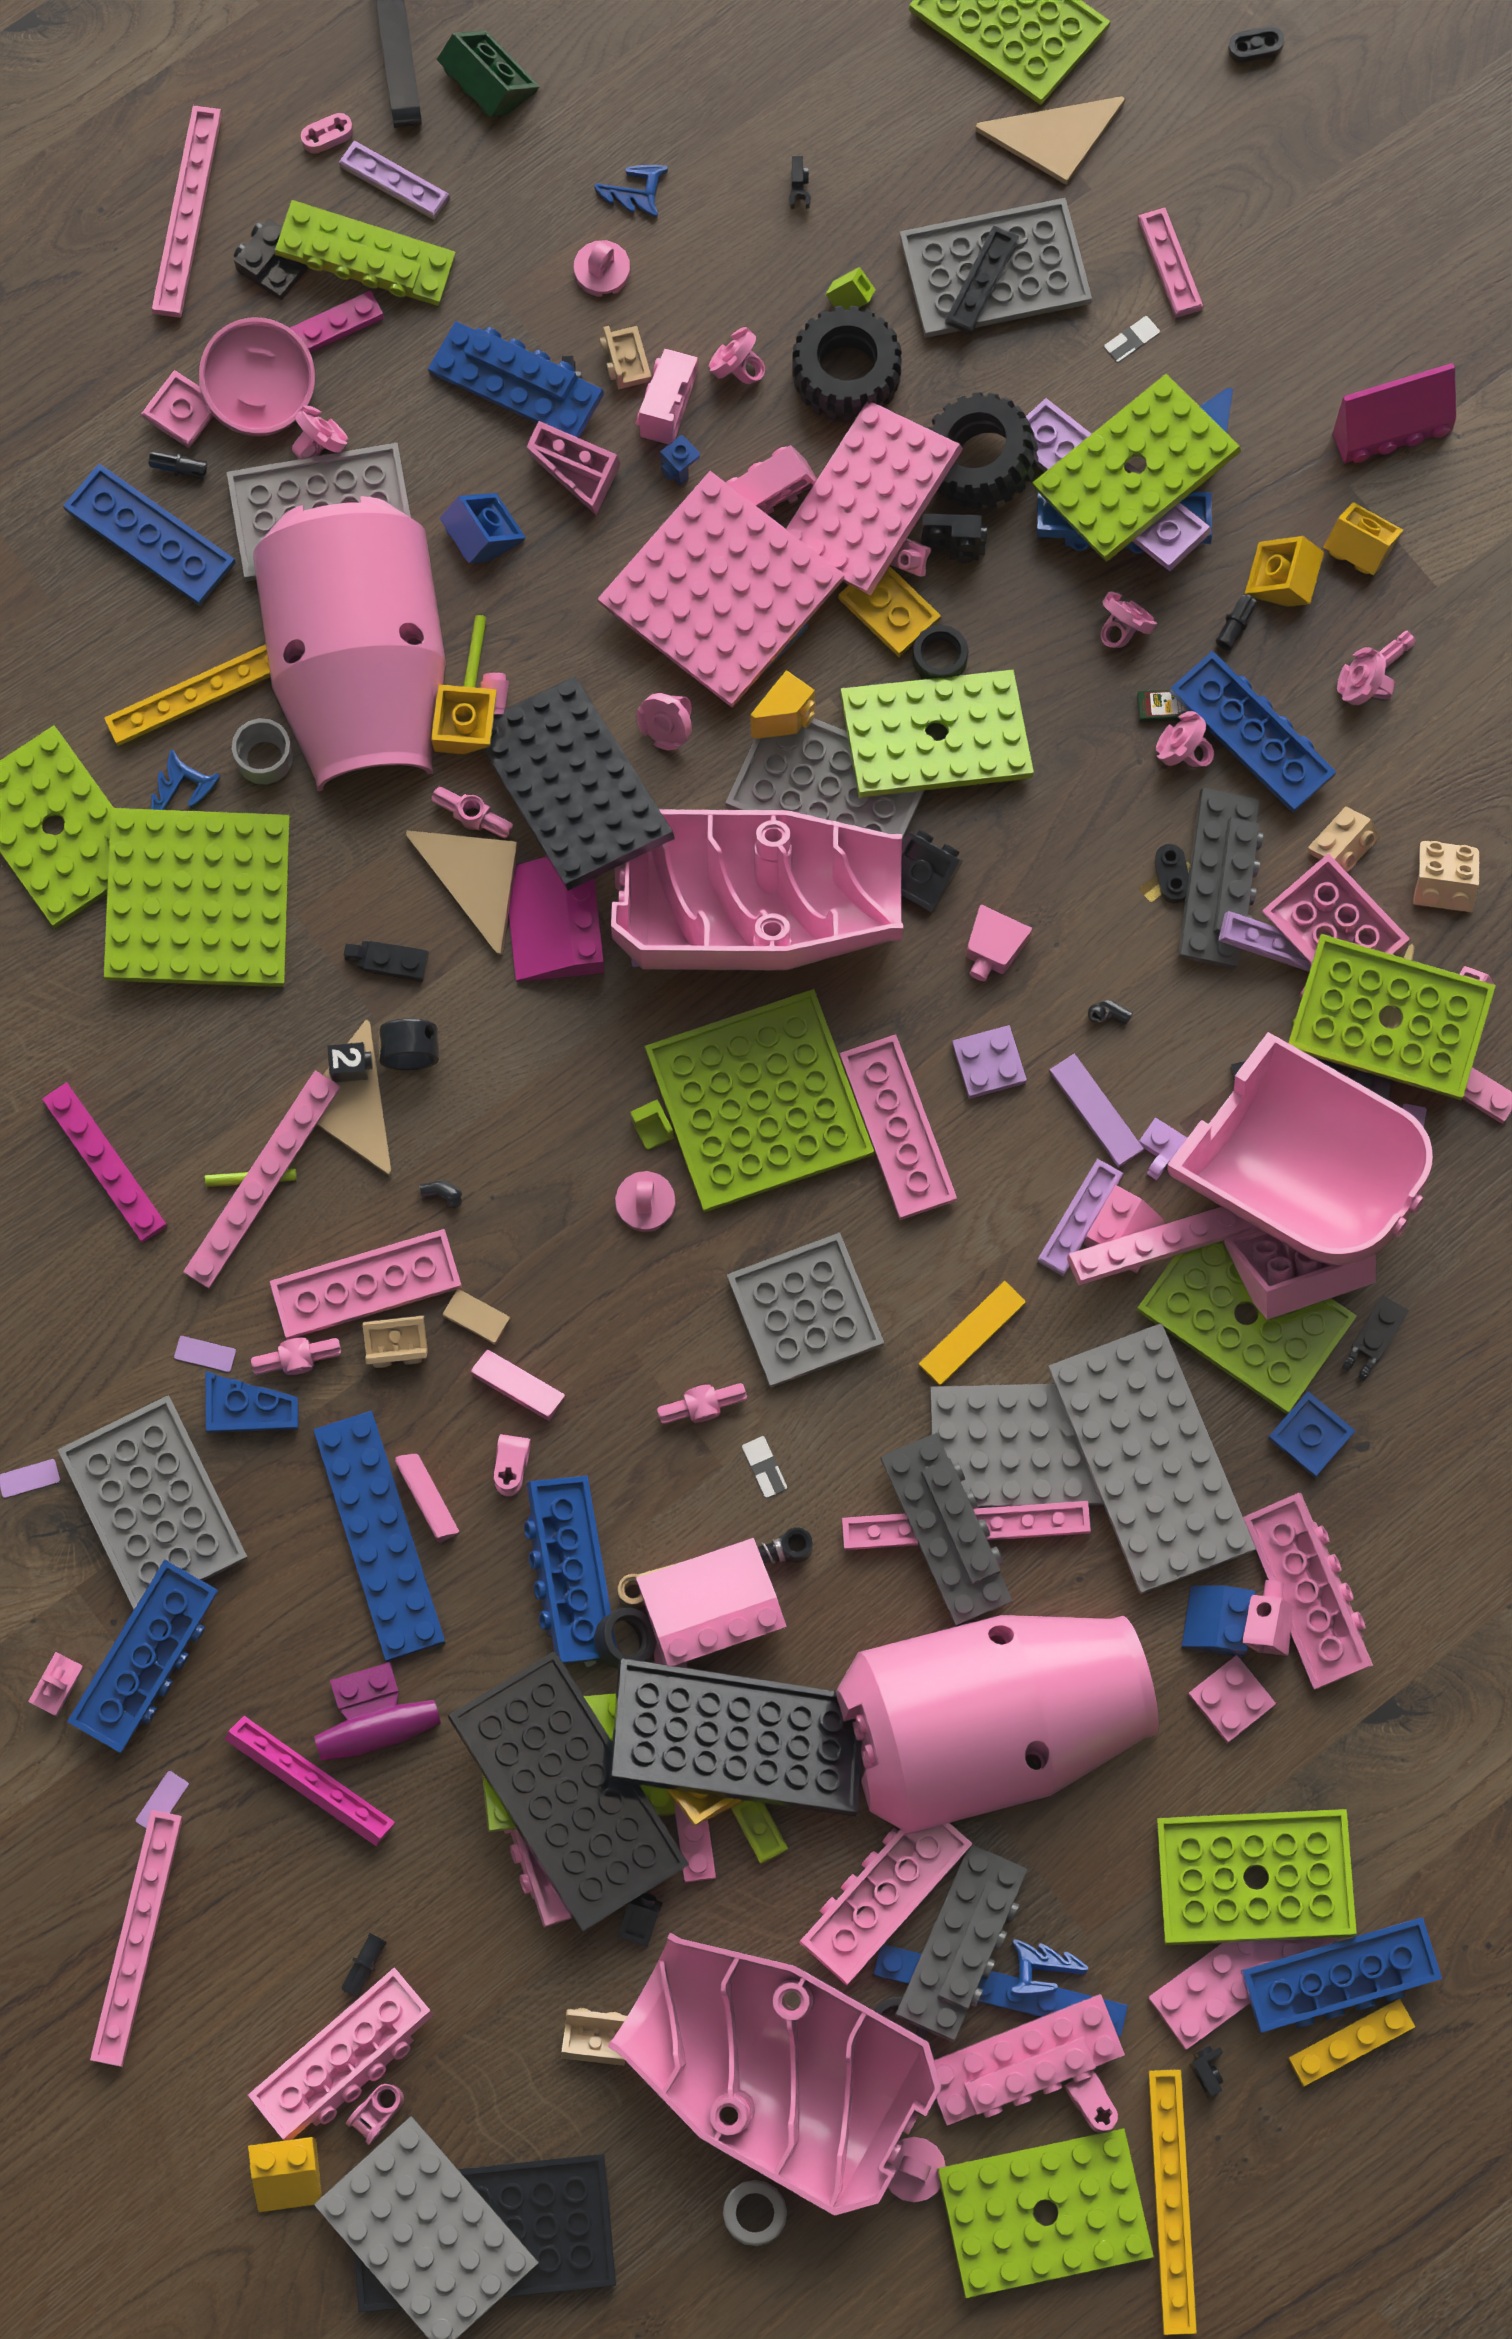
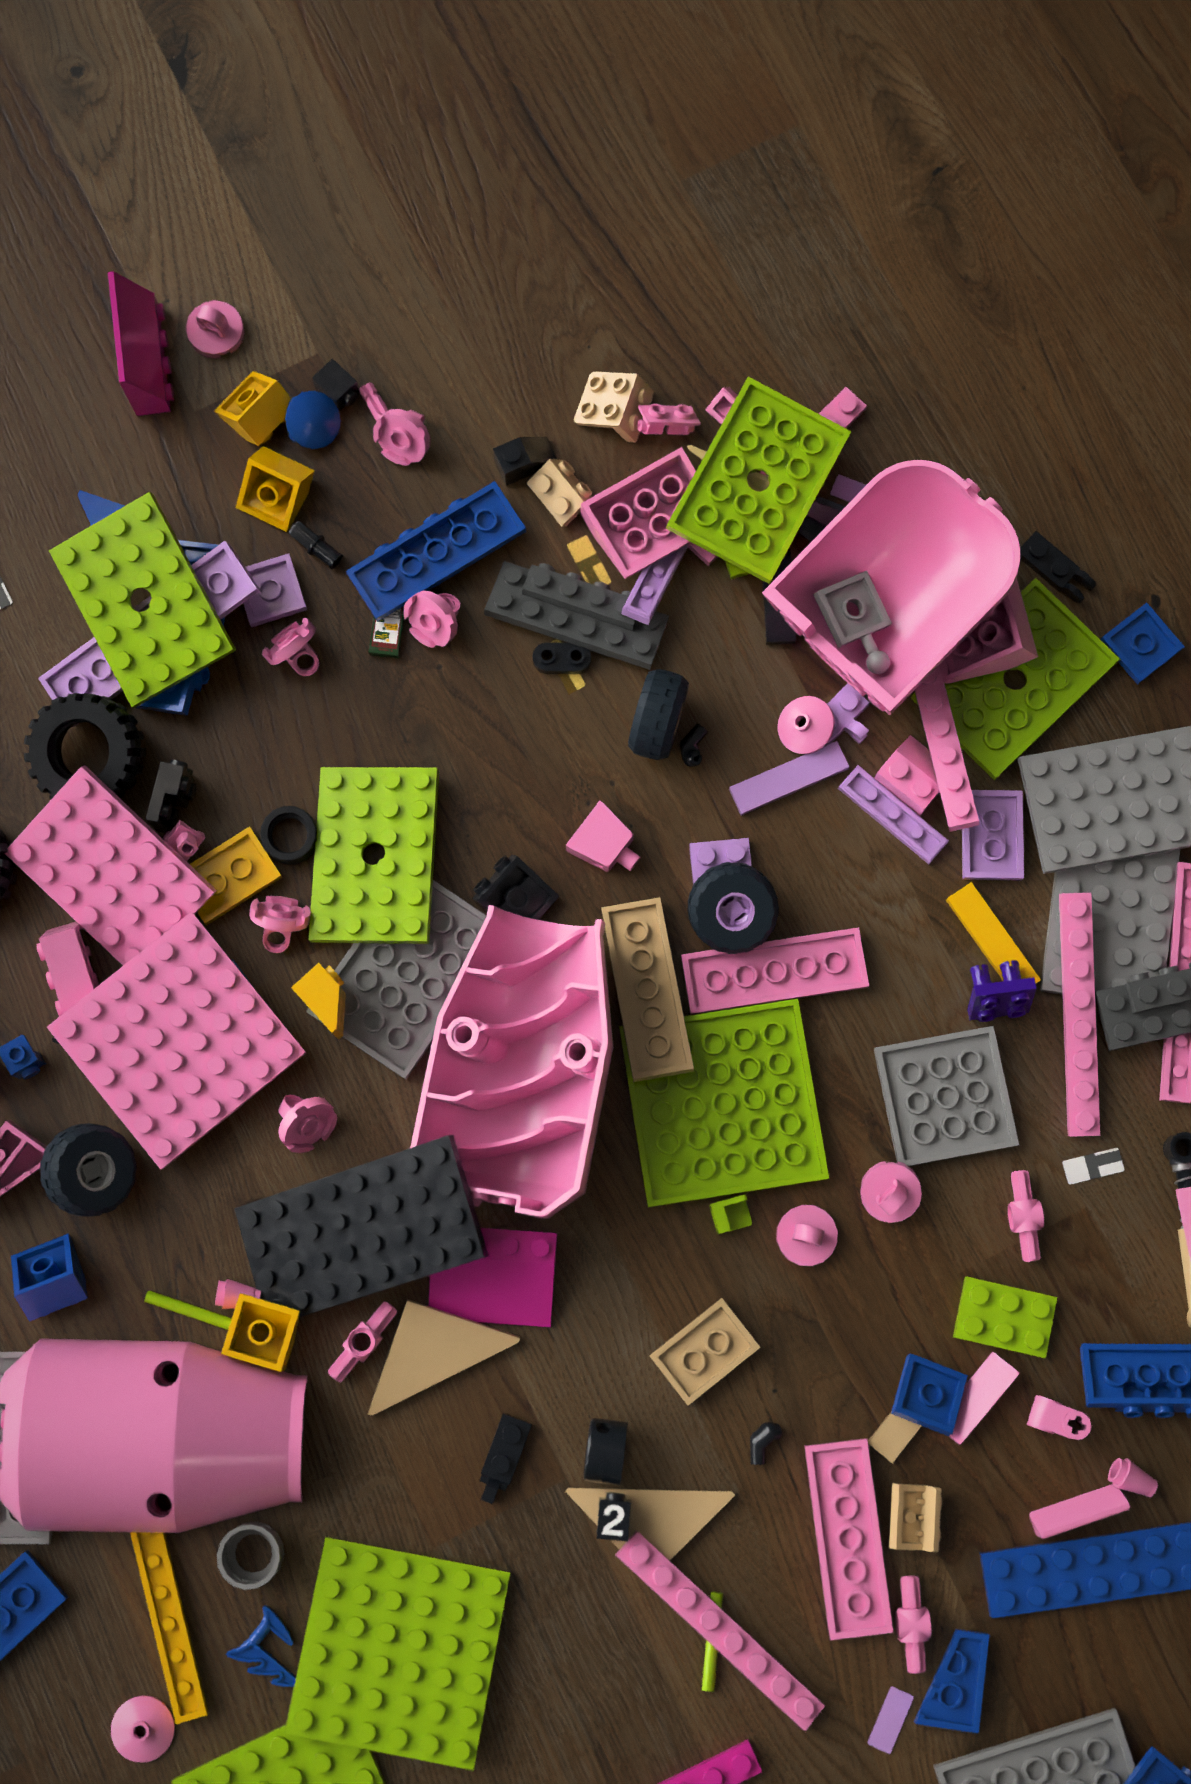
camera: 80 degrees left, 5 degrees up
(97, 705) = (154, 1717): none -> bright pink dish
(466, 1543) = (1130, 1477): none -> bright pink cone
(513, 1335) = (929, 1394): none -> blue plate
(517, 1123) = (704, 1351): none -> tan plate
(585, 536) = (88, 1170): none -> black wheel
(600, 1401) = (1005, 1317): none -> lime plate
(701, 1270) = (890, 1191): none -> bright pink tile
(854, 1006) = (647, 990): none -> tan plate
(859, 658) = (279, 915): none -> bright pink tile
(908, 1334) = (997, 999): none -> dark purple plate
(911, 1423) = (1079, 1014): none -> bright pink plate
(950, 1070) = (733, 907): none -> black wheel
(1078, 1315) = (996, 845): none -> lavender plate
(1129, 965) = (658, 714): none -> black wheel
(1153, 1115) = (814, 733): none -> bright pink dish
(1180, 591) = (279, 591): none -> lavender plate
(1256, 1132) = (849, 628): none -> light grey plate
(1277, 882) = (588, 561): none -> clear yellow sticker
(1361, 591) = (312, 419): none -> blue dish
(1370, 796) = (522, 457): none -> black slope
(1404, 607) = (336, 384): none -> black brick
(1437, 486) = (215, 329): none -> bright pink tile
(1445, 936) = (679, 419): none -> bright pink hinge

